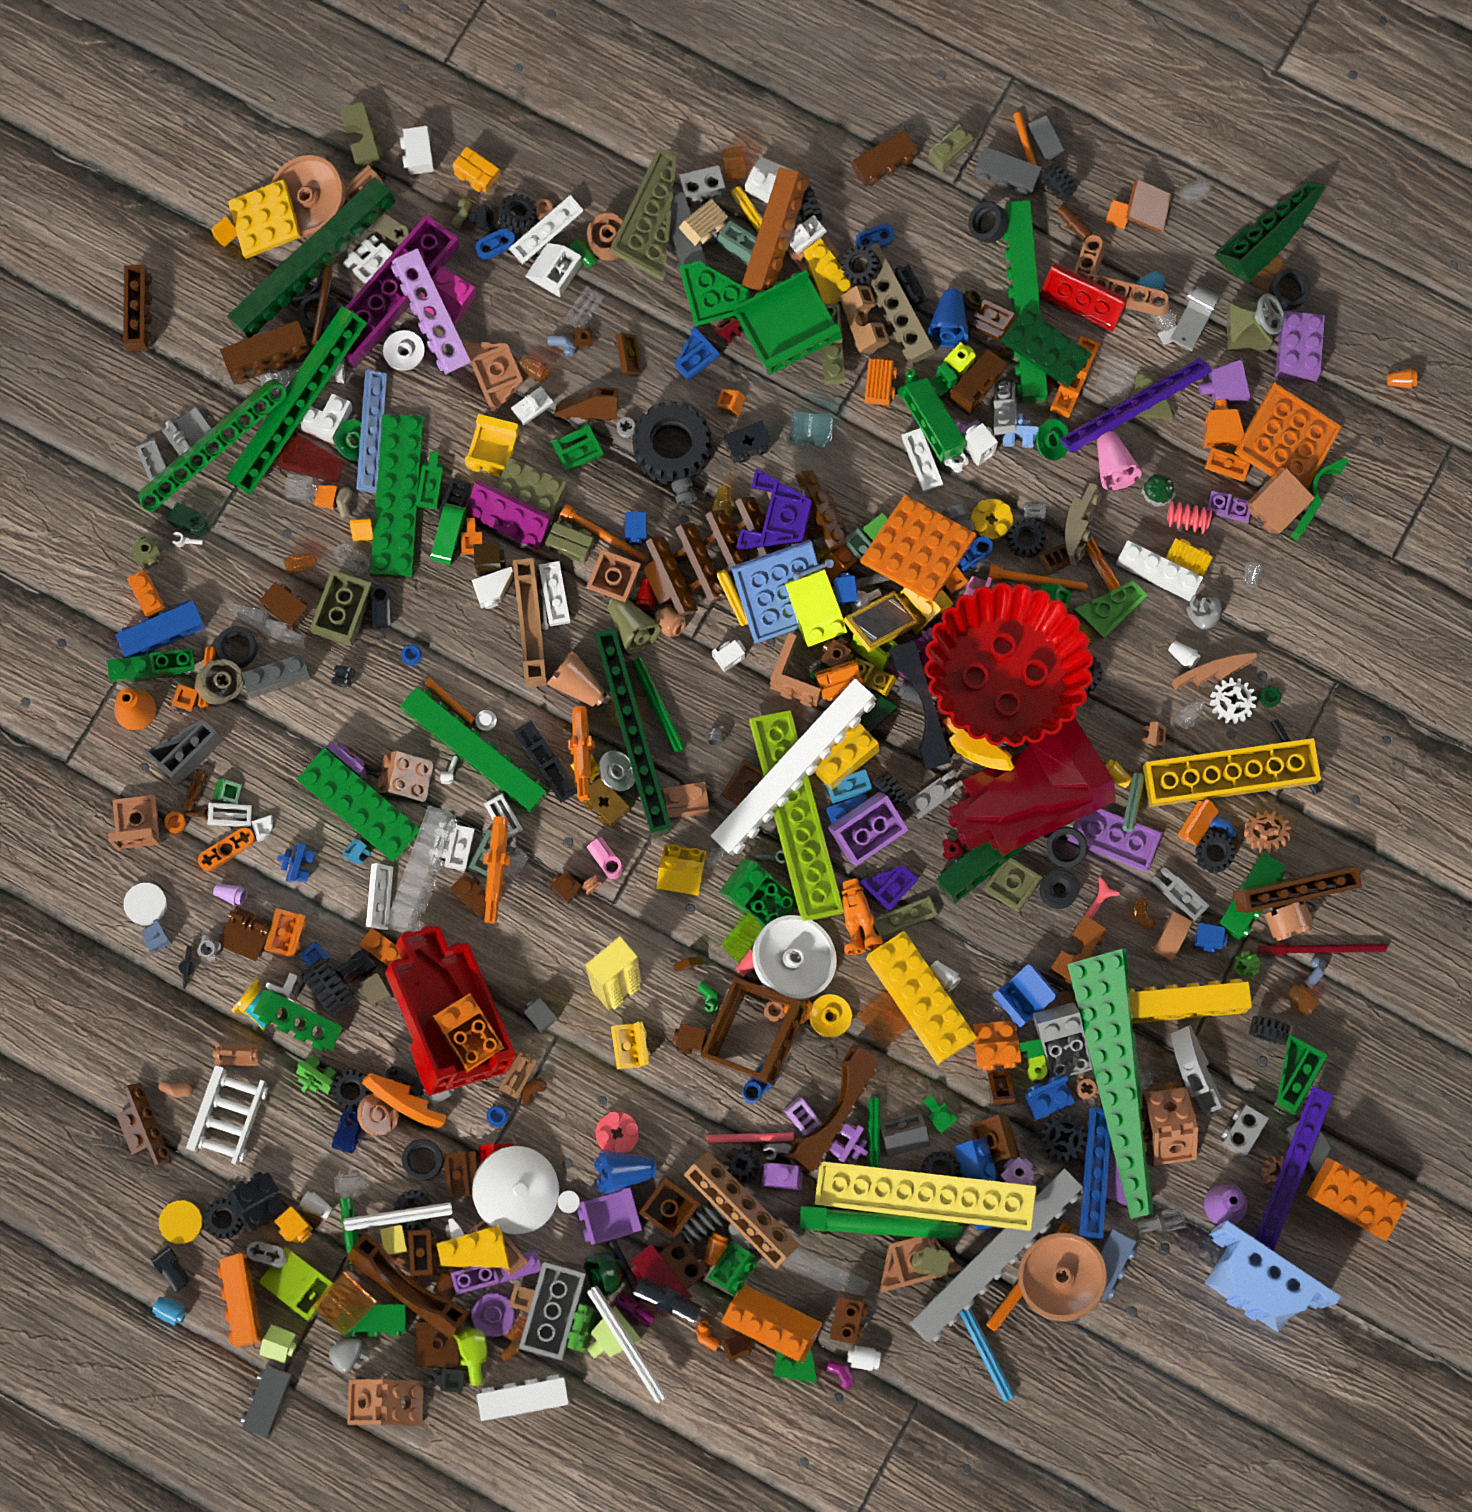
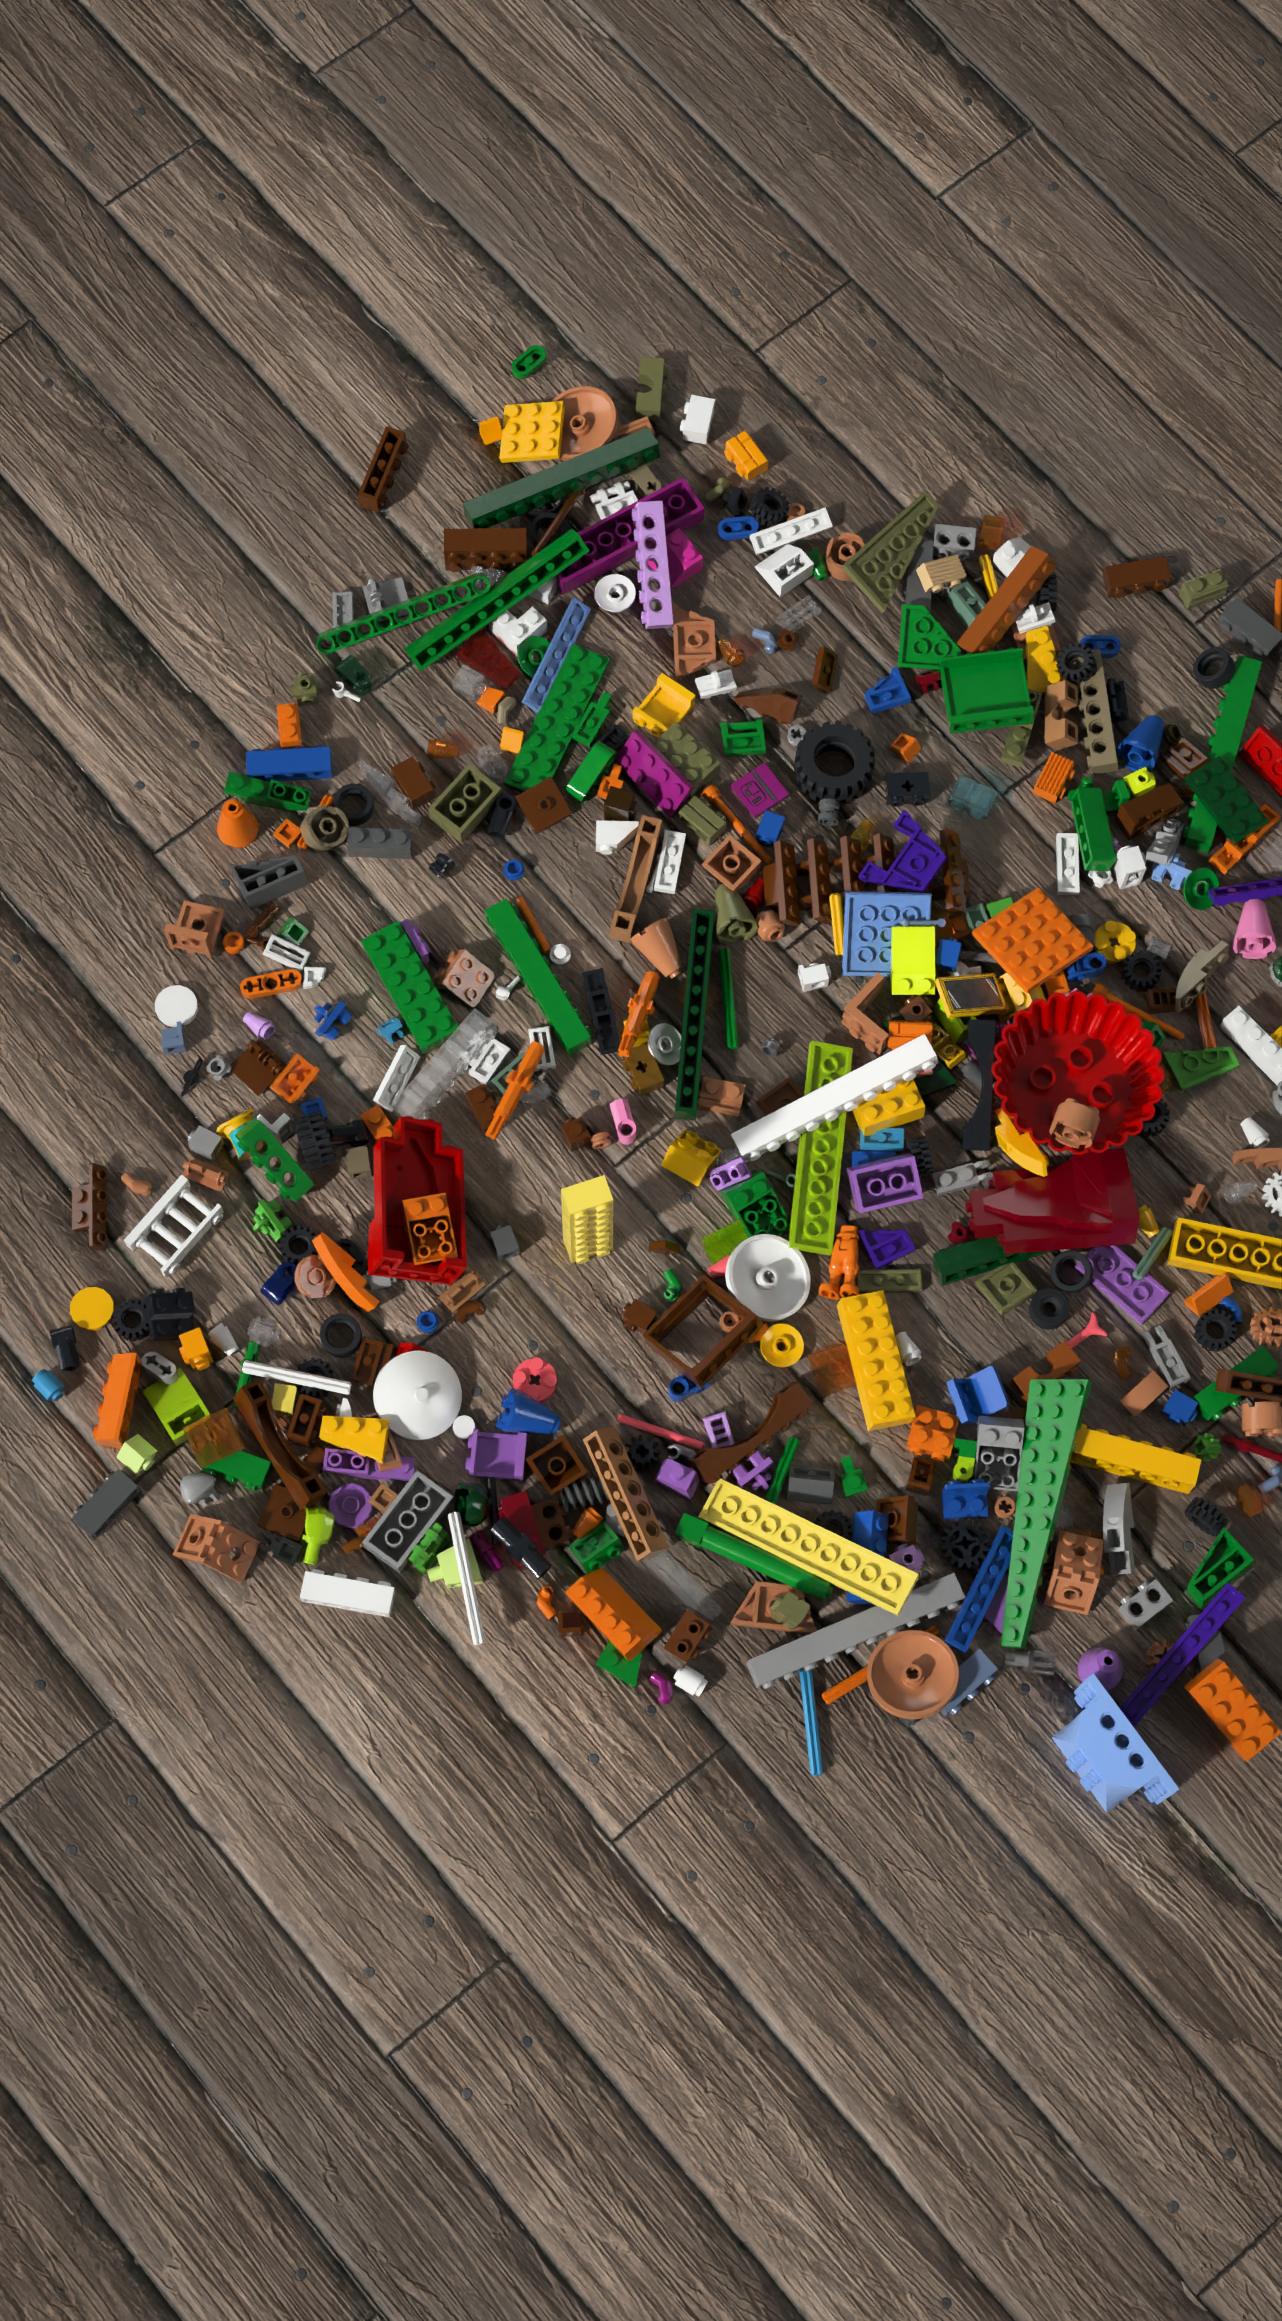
camera: 20 degrees right, 5 degrees down
(225, 1026) = (205, 1142): none -> light grey brick
(234, 151) = (526, 362): none -> green plate
(415, 582) = (543, 805): none -> reddish brown plate
(611, 493) = (759, 790): none -> magenta tile
(630, 1045) = (579, 1302): yellow bracket -> none
(722, 873) = (729, 1173): none -> medium lavender hips
(1025, 716) = (1075, 1124): none -> nougat brick

